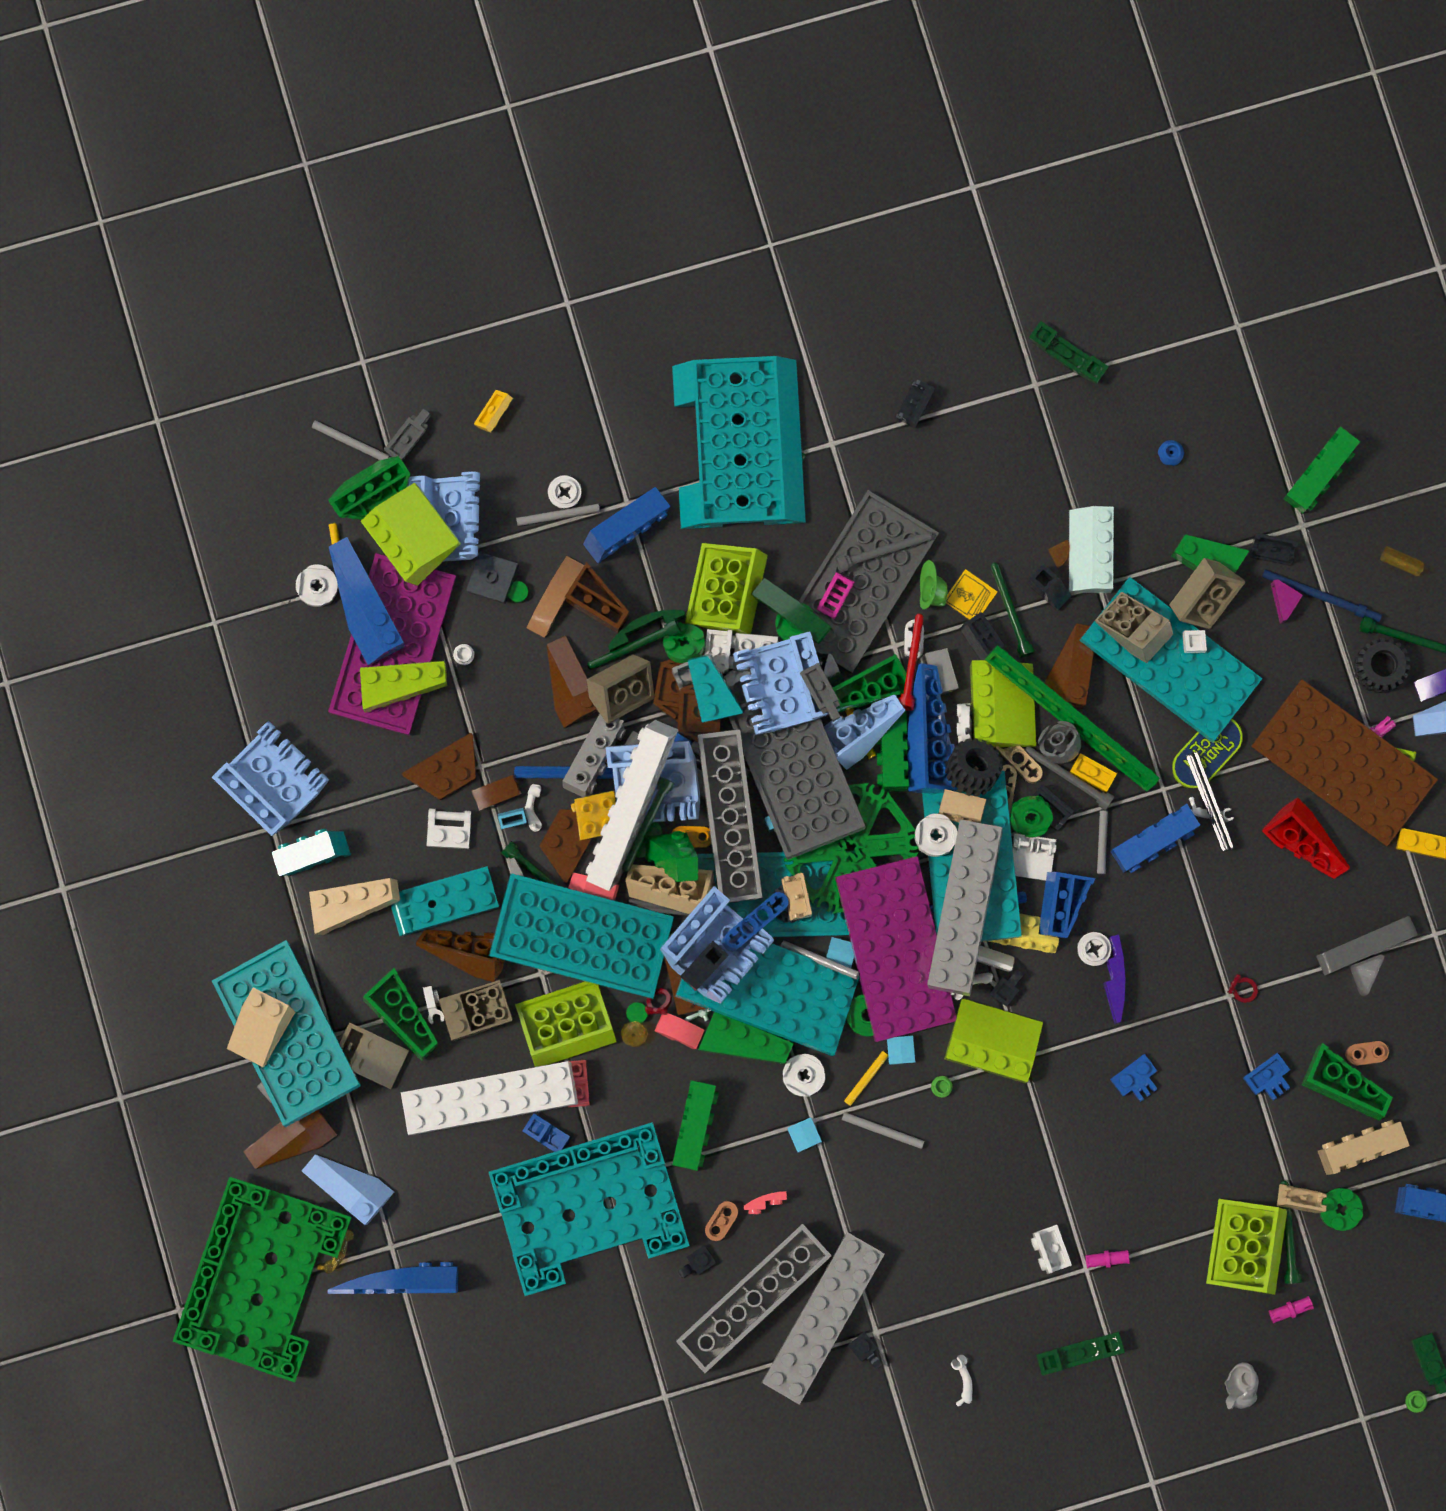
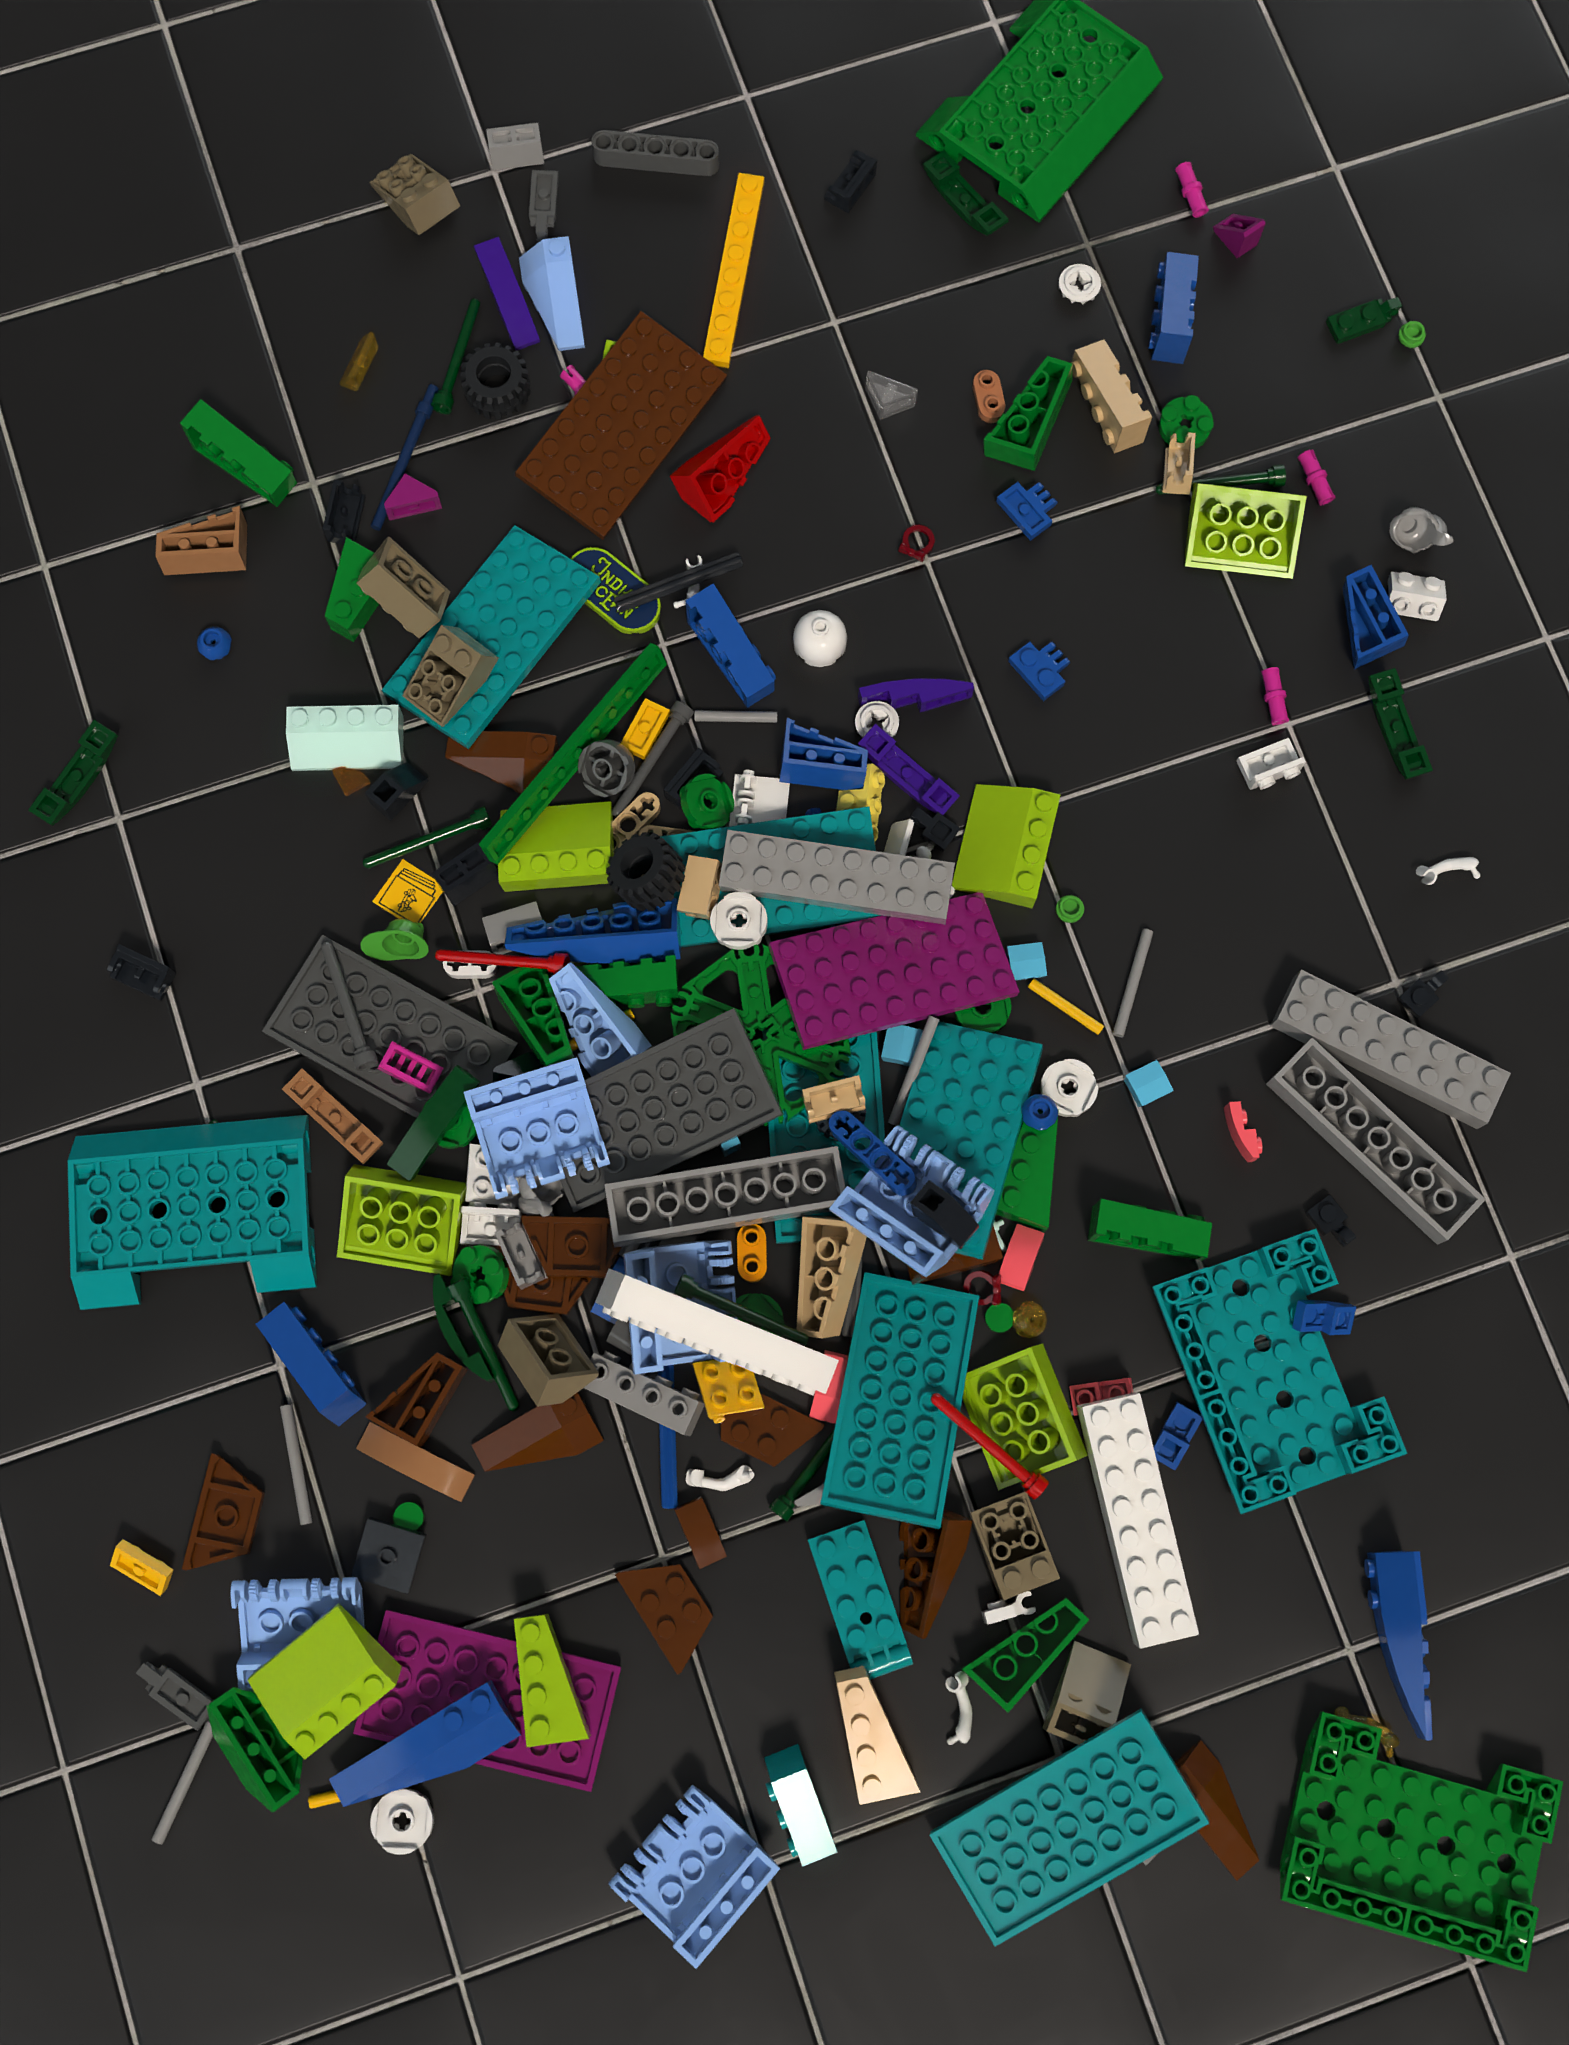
camera: 90 degrees left, 5 degrees down
(259, 1027) = (1065, 1868): tan slope -> none
(352, 1189) = (1279, 1711): light blue wedge -> none
(384, 967) = (963, 1729): none -> white piece
(448, 835) = (765, 1599): white plate -> none
(463, 654) = (501, 1592): white plate -> none
(512, 813) = (731, 1510): medium azure piece -> none
(517, 1026) = (1032, 1482): none -> red piece
(525, 466) = (224, 1516): none -> reddish brown wing
(564, 482) = (248, 1456): white gear -> none
(626, 1249) = (1324, 1316): none -> blue slope
(674, 854) = (783, 1269): green wedge -> none
(711, 690) = (552, 1226): teal wedge -> none
(722, 1221) = (1272, 1189): nougat plate -> none
(777, 1052) = (1033, 1118): none -> blue plate
(803, 540) = (332, 1116): none -> medium nougat slope
(821, 690) = (548, 1071): dark grey hinge -> none
(964, 727) = (580, 889): white plate -> none
(1053, 969) = (906, 772): none -> dark purple slope
(1163, 909) = (820, 638): none -> white cylinder
(1168, 1338) = (1371, 618): none -> blue wedge
(1188, 1379) = (1417, 595): none -> white bracket
(1194, 641) = (468, 602): white plate -> none
(1246, 446) = (205, 546): none -> medium nougat wedge
(1367, 945) = (854, 396): dark grey beam -> none

